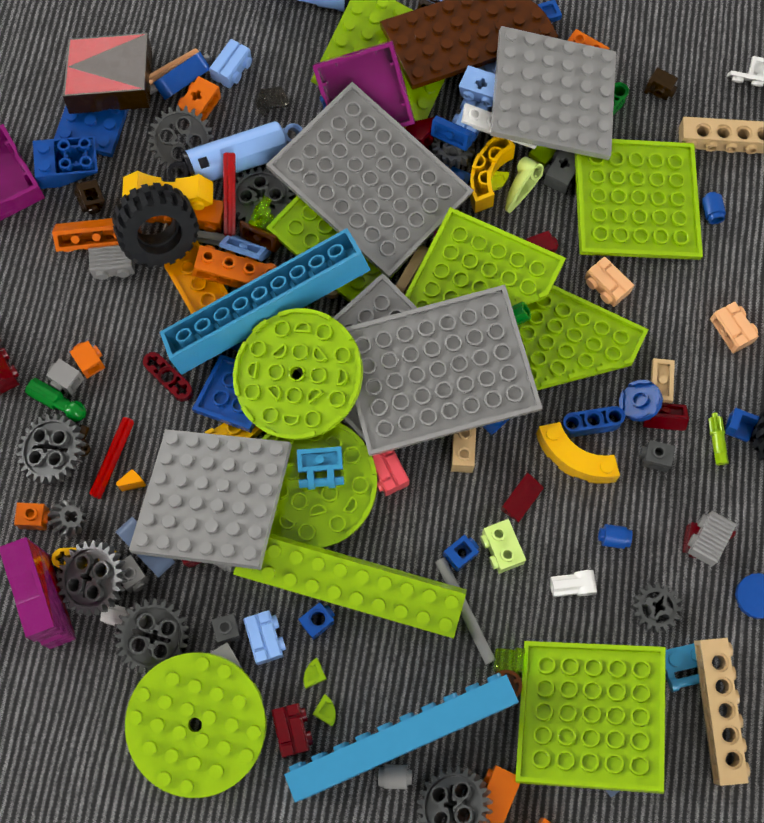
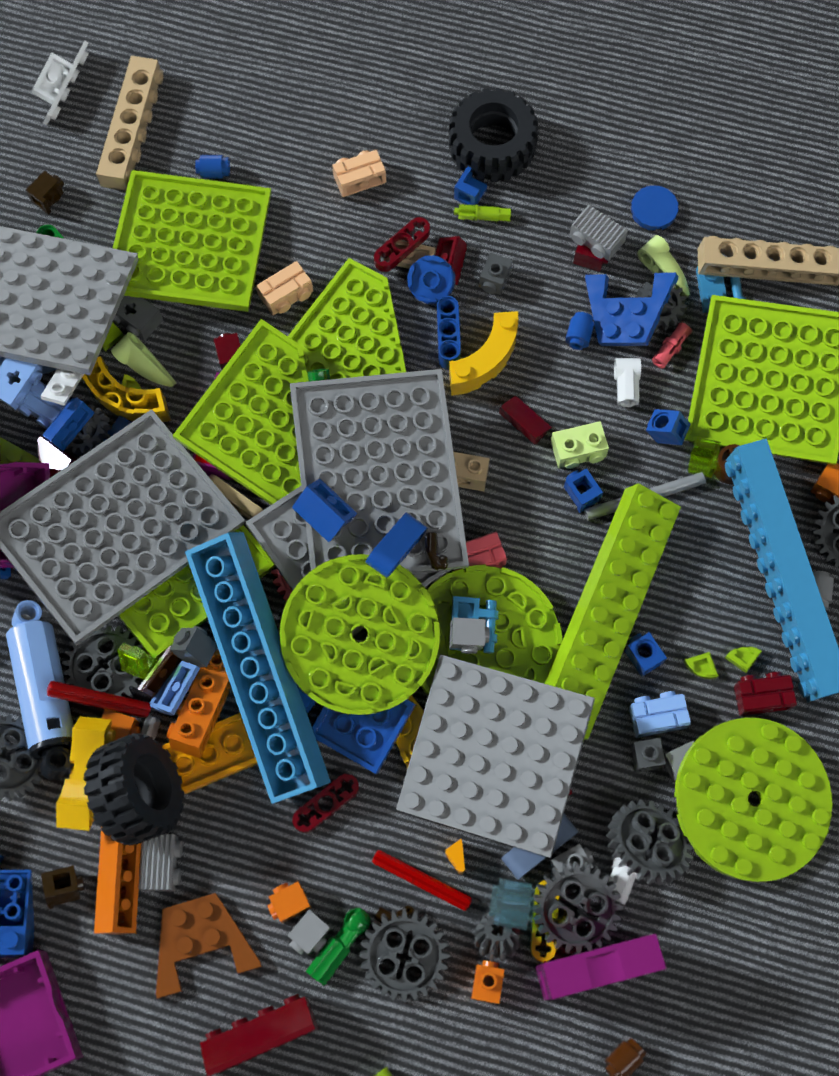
camera: 80 degrees left, 0 degrees up
(64, 296) = (194, 930): none -> dark orange wing
(92, 525) = (511, 903): none -> clear light blue brick
(277, 252) = (193, 646): none -> dark grey brick
(306, 460) = (468, 634): none -> light grey brick
(371, 387) = (396, 545): none -> blue beam
(372, 420) = (431, 550): none -> dark brown arm
(397, 327) = (323, 509): none -> blue panel
(532, 623) = (668, 427): none -> blue brick
(617, 623) = (671, 345): none -> coral pin
(633, 576) = (627, 319): none -> blue wing
(685, 374) = (400, 254): none -> dark red beam
(699, 610) = (657, 259): none -> yellowish green piece

